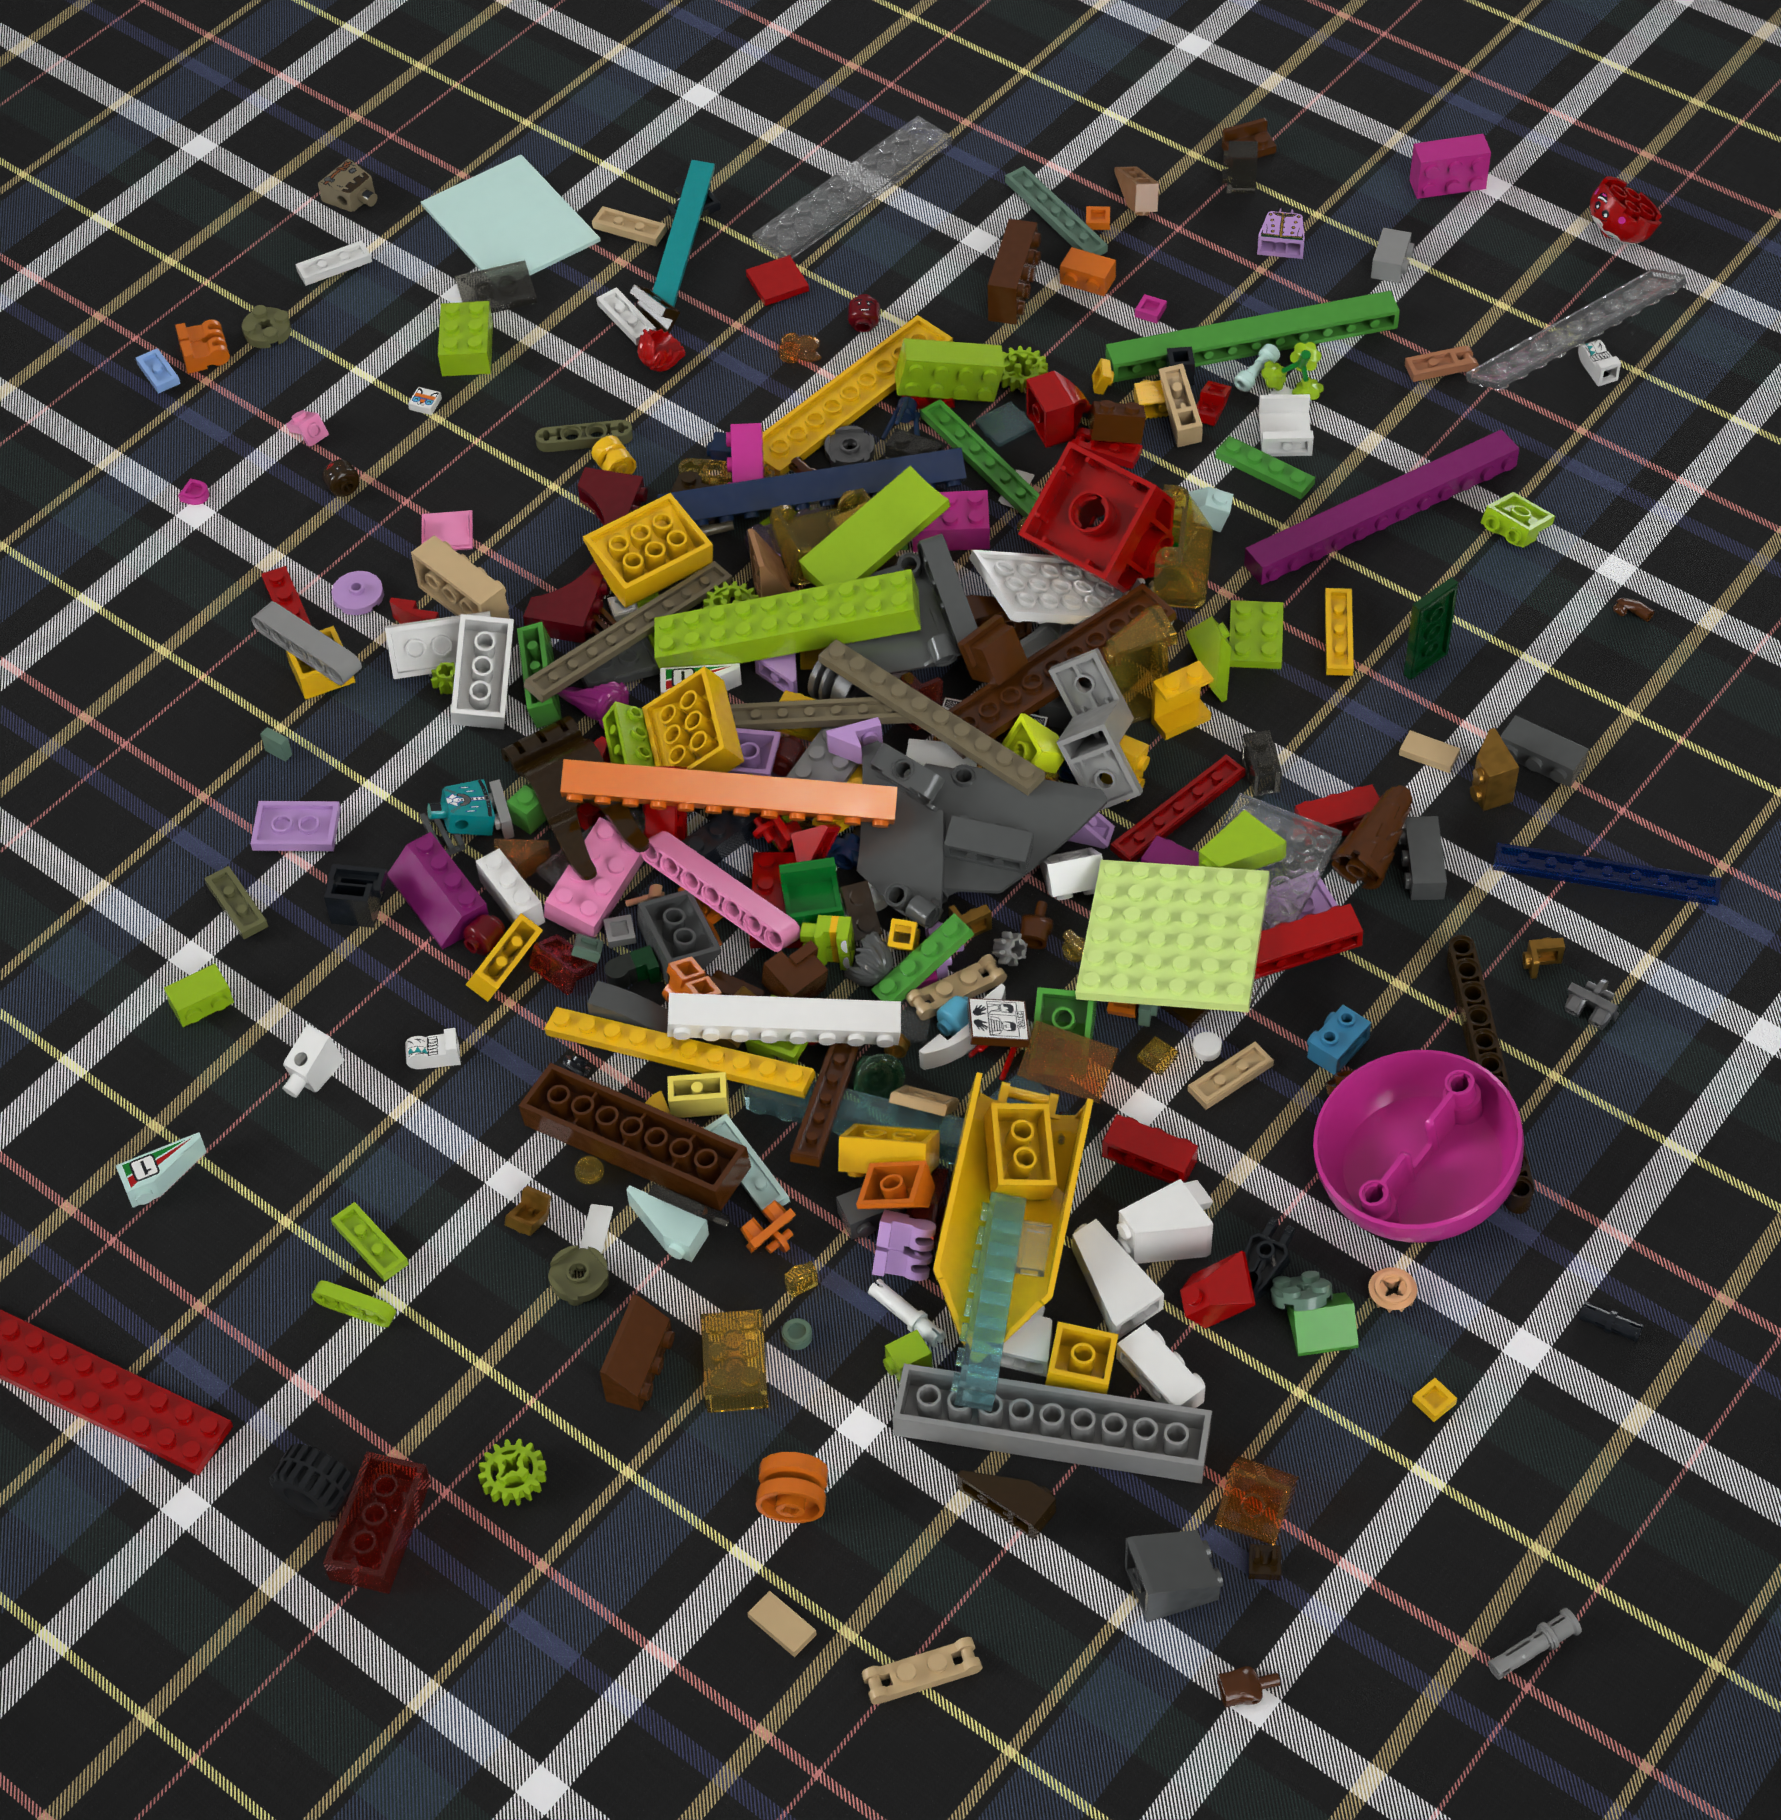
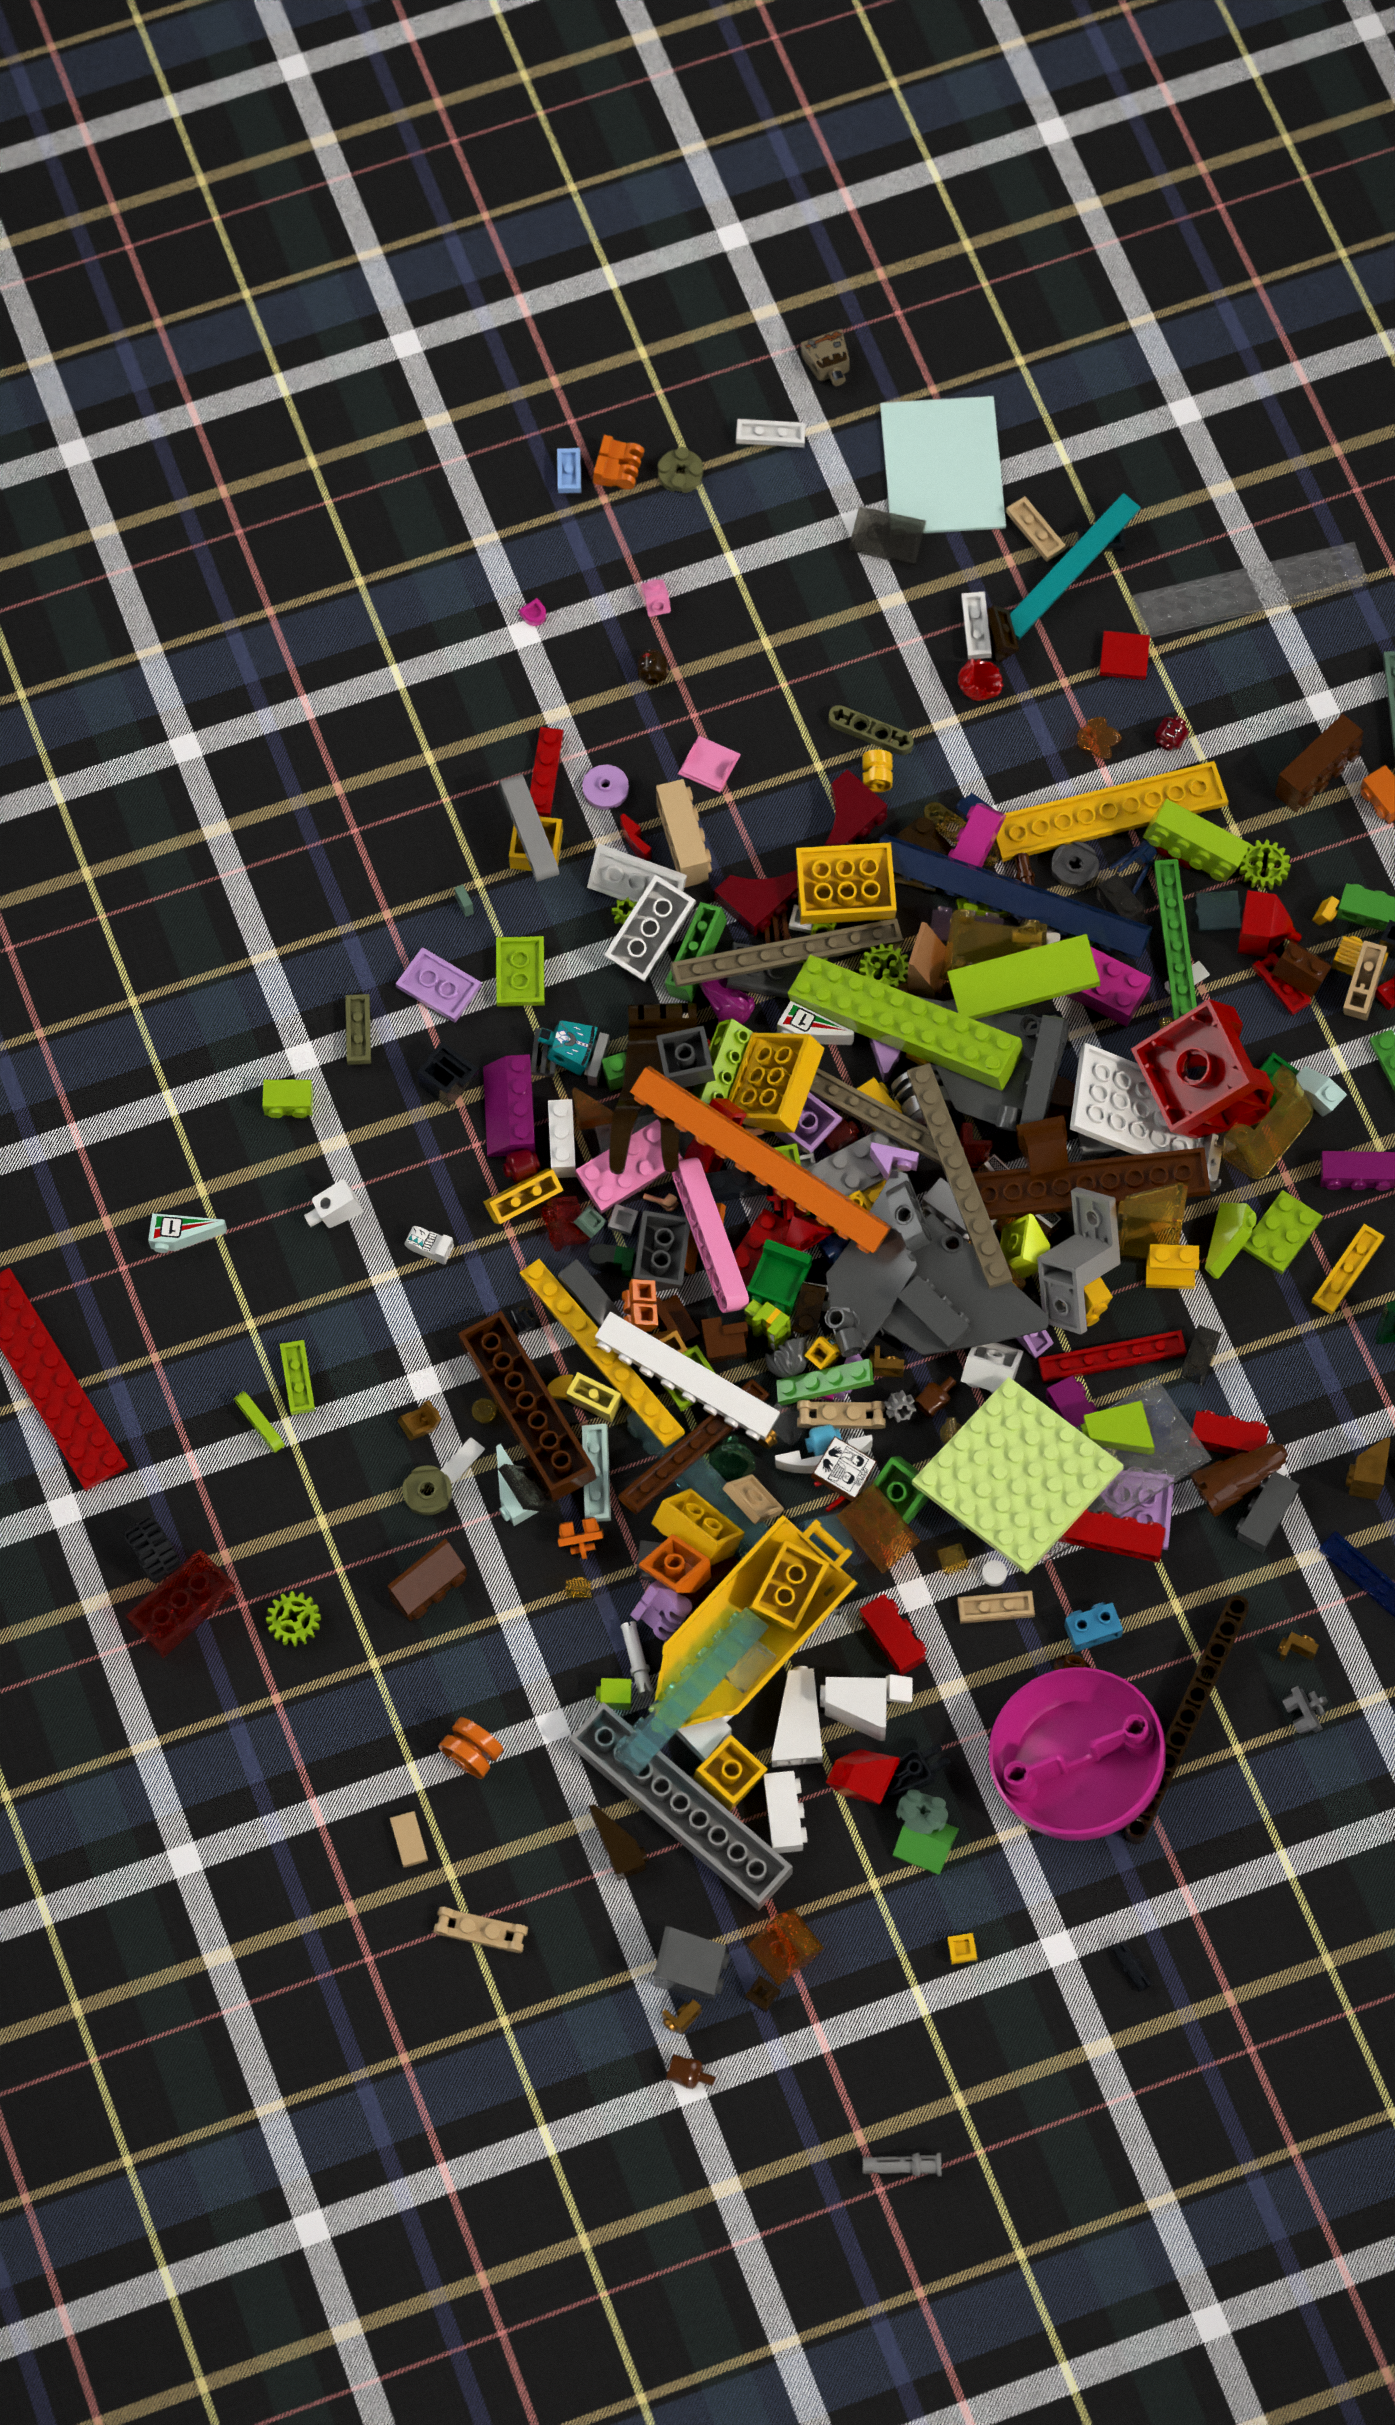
camera: 30 degrees right, 15 degrees up
(372, 775) = (520, 971): none -> lime plate
(424, 400) = (764, 621): tile -> none
(465, 338) = (831, 577): lime brick -> none
(595, 740) = (686, 1057): none -> dark grey brick
(734, 1361) = (493, 1625): clear yellow brick -> none
(797, 1334) = (551, 1628): sand green tile -> none
(1200, 1636) = (686, 2015): none -> pearl gold bracket
(1391, 1278) = (998, 1837): light nougat gear -> none
(1429, 751) = (1342, 1419): tan tile -> none

